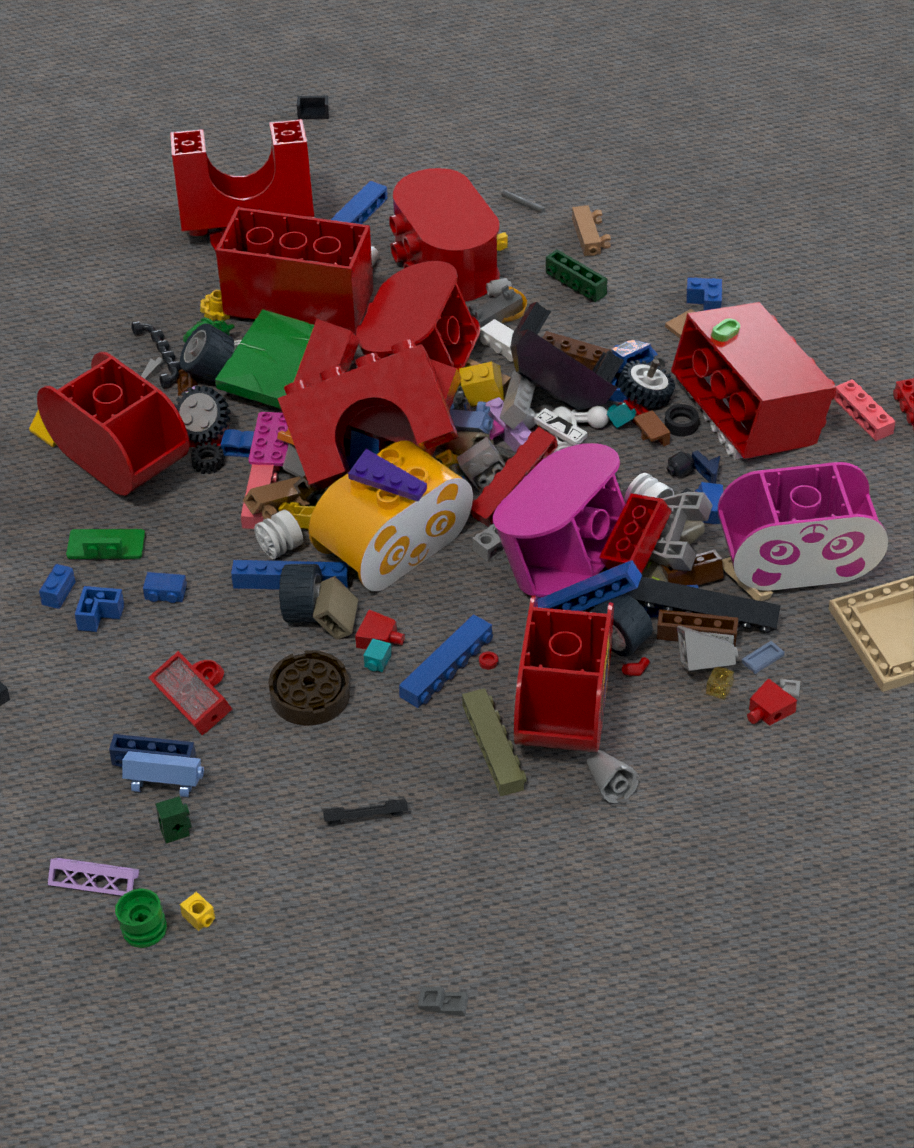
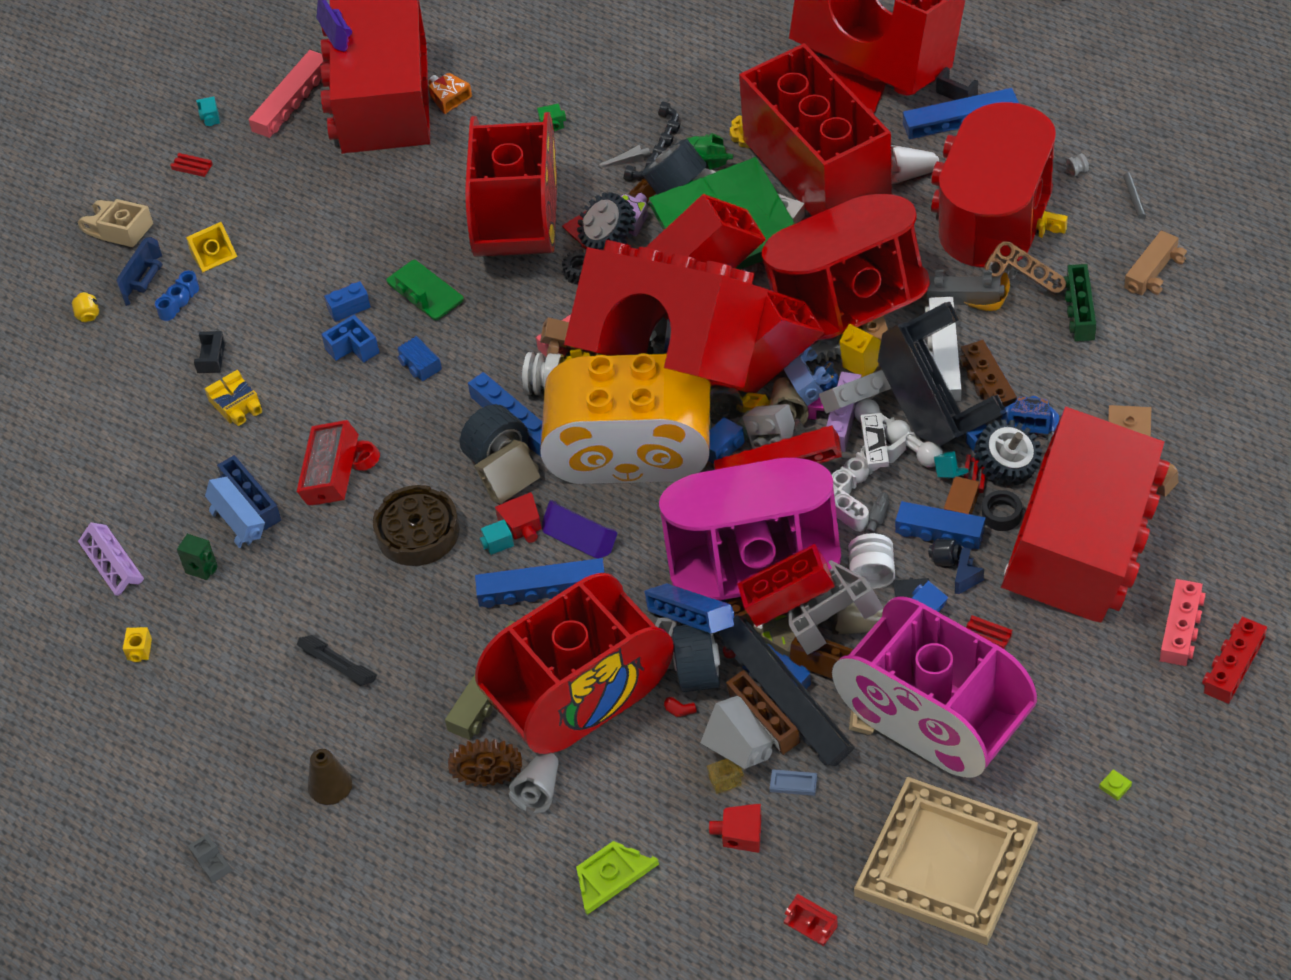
camera: 50 degrees right, 5 degrees up
(51, 705) = (233, 398): none -> yellow hips
(57, 377) = (557, 115): none -> green brick
(141, 918) = (92, 617): green wheel -> none
(328, 204) = (954, 89): none -> black panel
(381, 474) = (612, 379): dark purple wing -> none
(428, 613) = (578, 531): none -> dark purple piece
(464, 883) = (327, 778): none -> dark brown cone
(526, 273) = (1028, 270): none -> medium nougat beam
(571, 784) = (485, 762): none -> reddish brown gear
(655, 452) = (936, 523): none -> blue brick
(704, 292) = (1181, 403): blue brick -> none
(725, 330) = (1079, 447): bright green tile -> none
(726, 793) = (610, 873): none -> lime wing
(791, 687) = (781, 828): light grey tile -> none
(880, 721) = (811, 919): none -> red hinge

